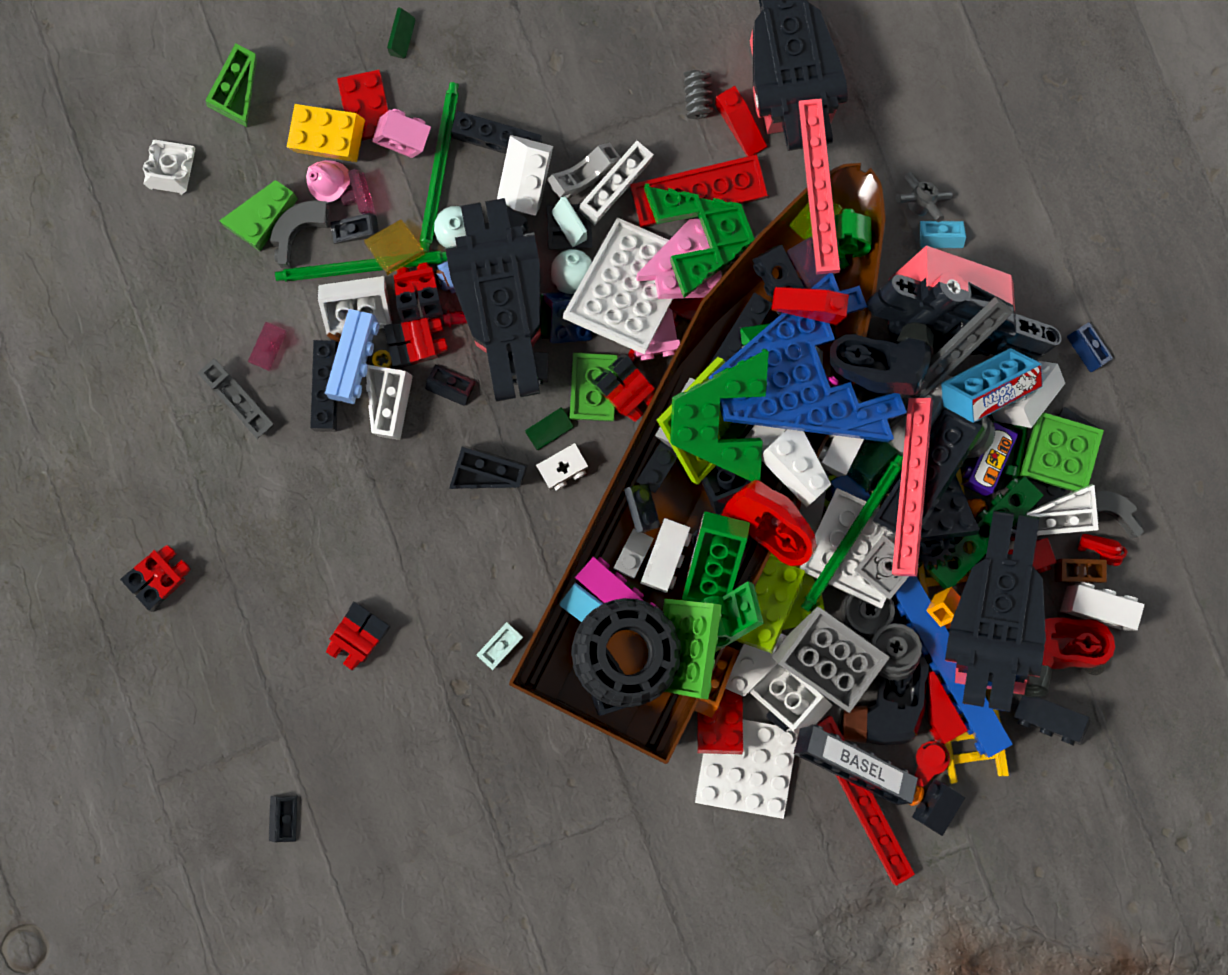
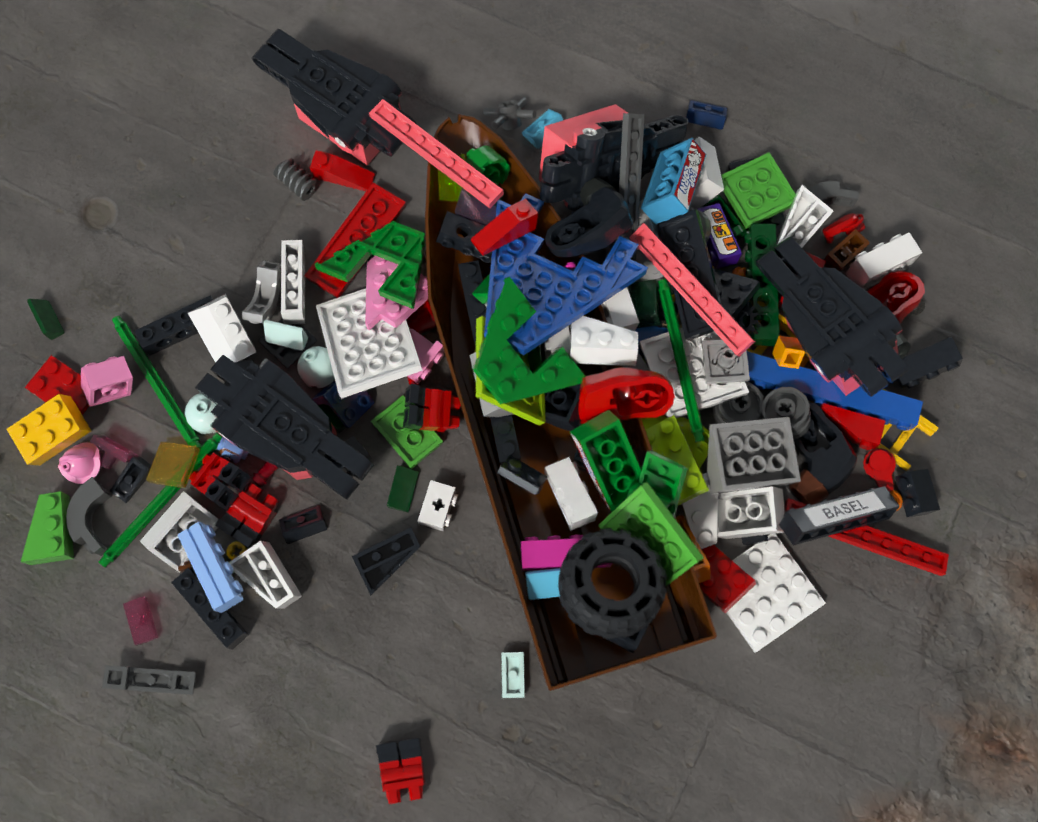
camera: 40 degrees left, 10 degrees down
(633, 553) = (547, 514): light grey slope -> none

